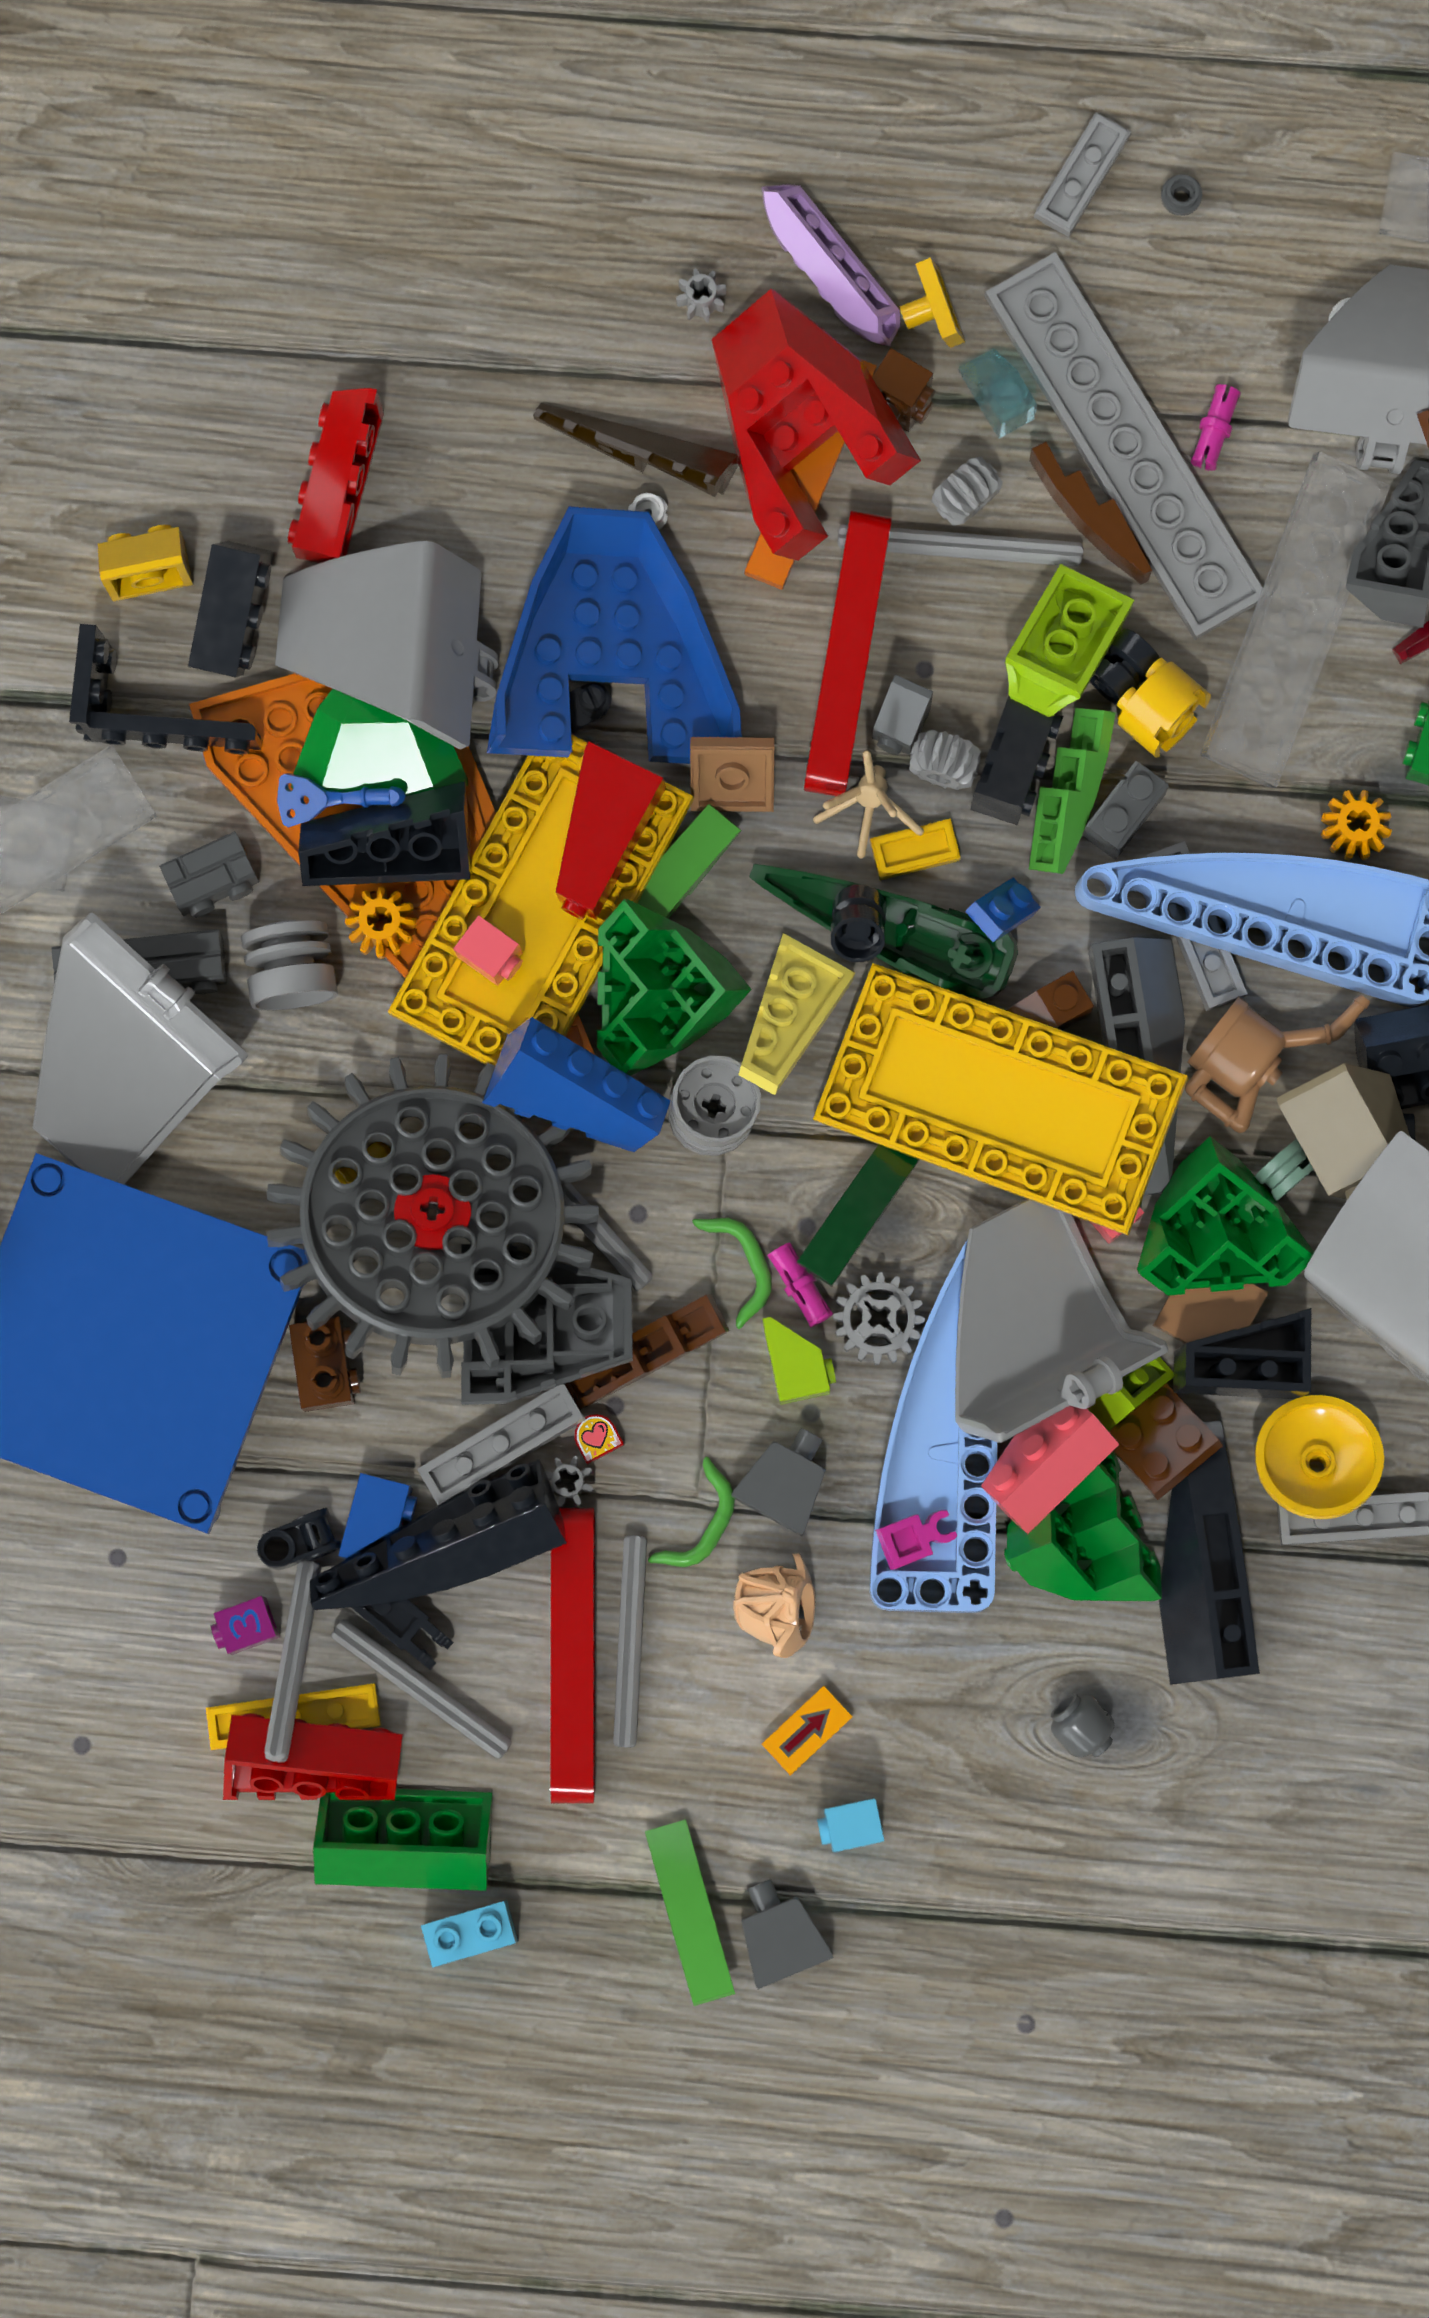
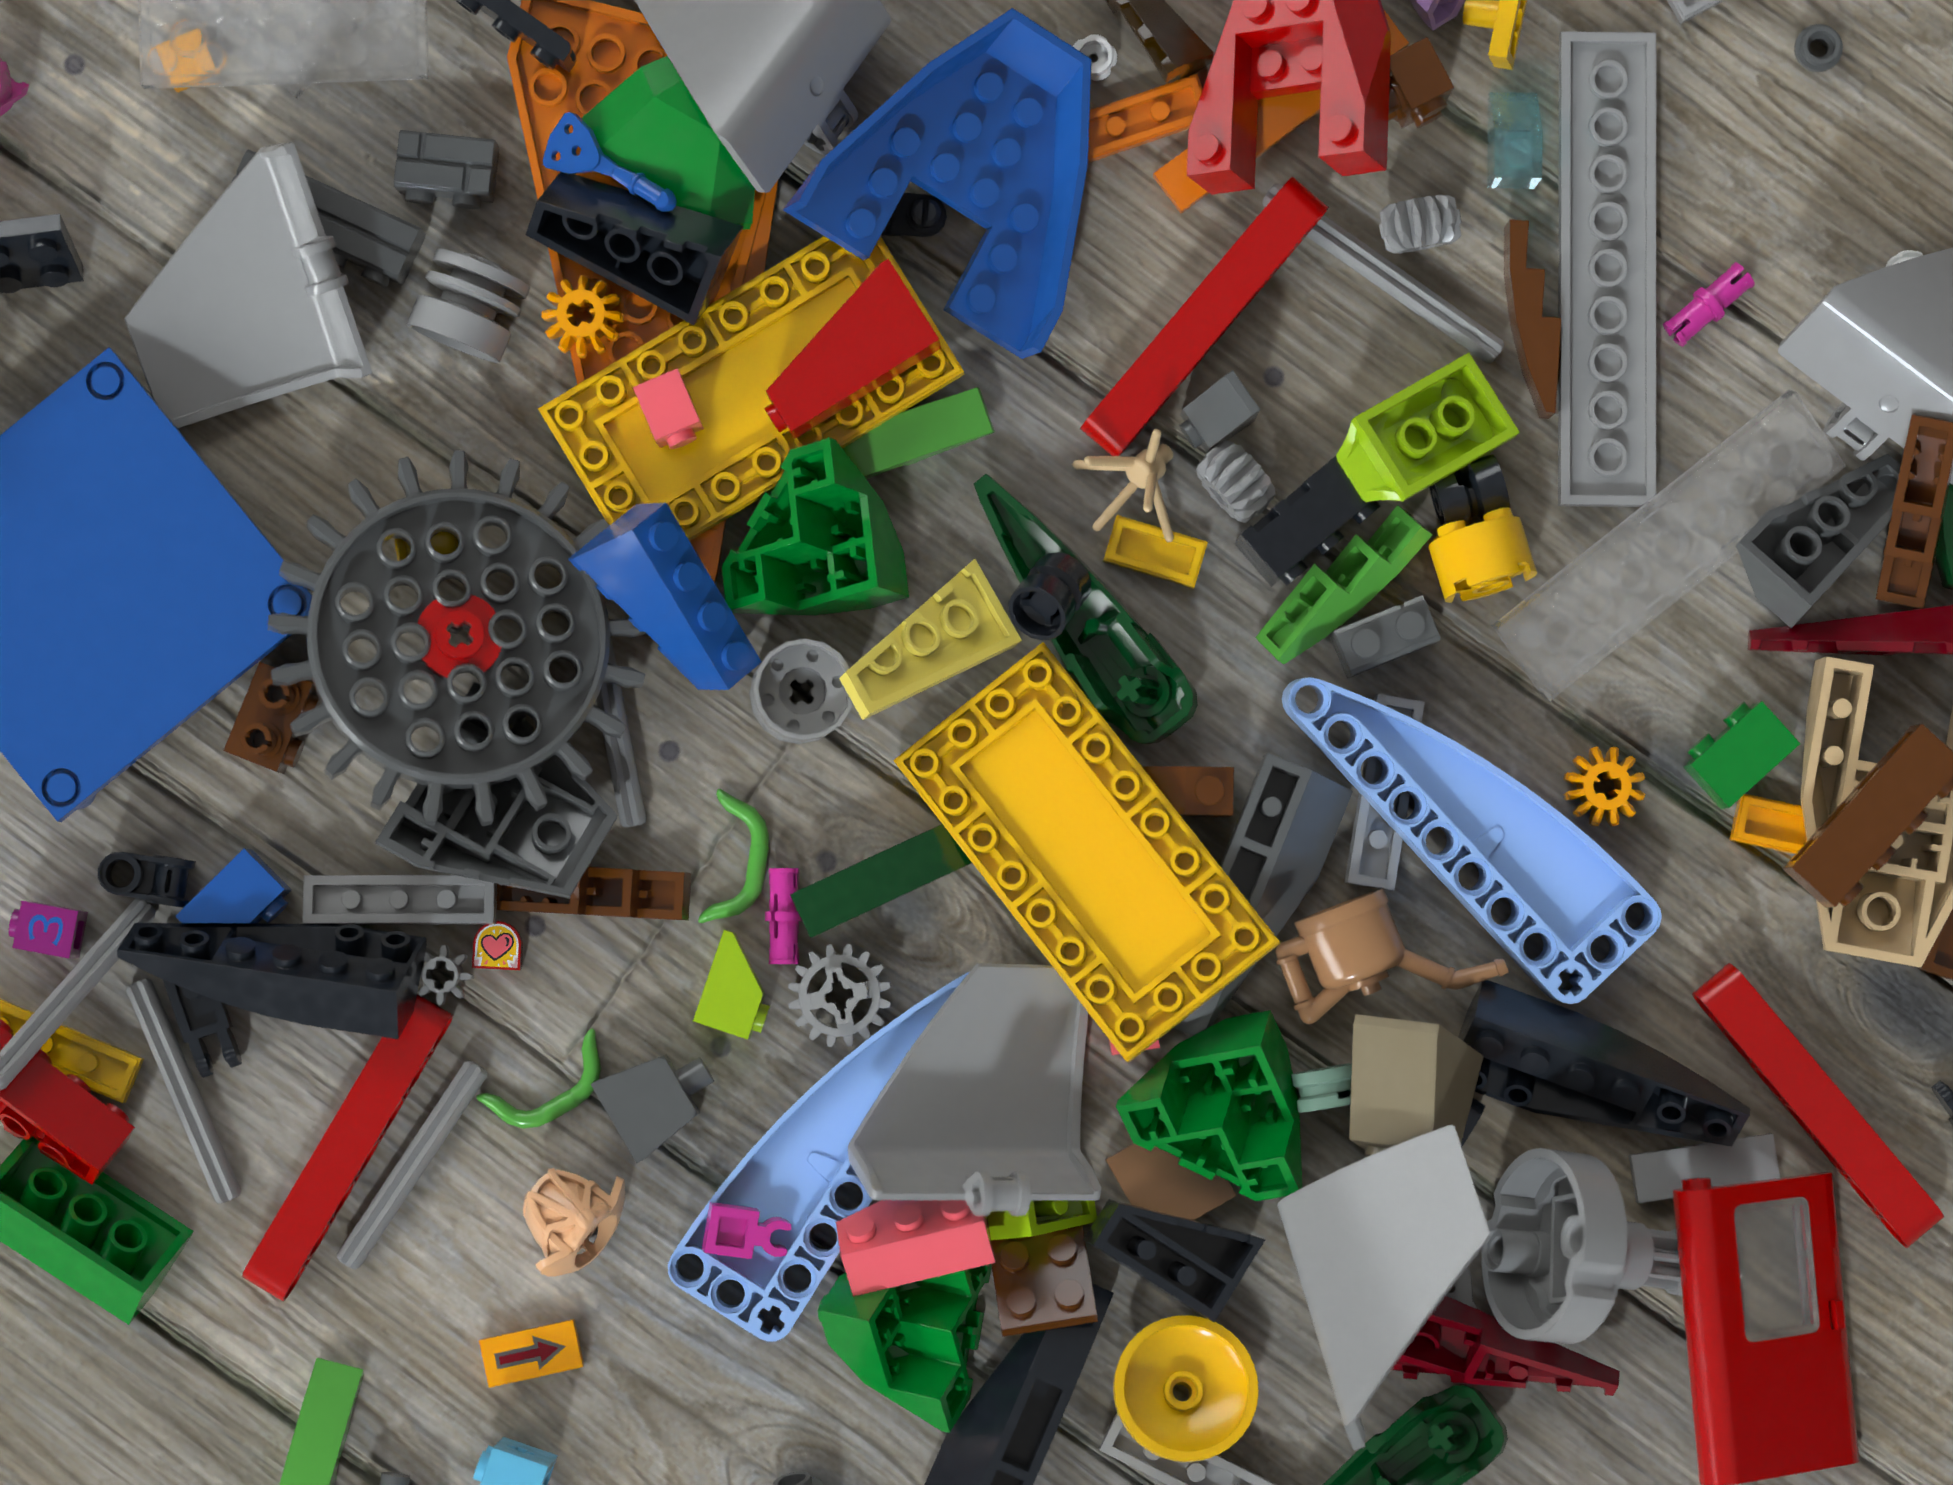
camera: 25 degrees right, 5 degrees up
(469, 1933) = (88, 1356): medium azure brick -> none
(713, 533) = (1143, 117): none -> orange tile
(732, 773) = (1017, 371): medium nougat tile -> none
(1003, 909) = (1203, 665): blue plate -> none

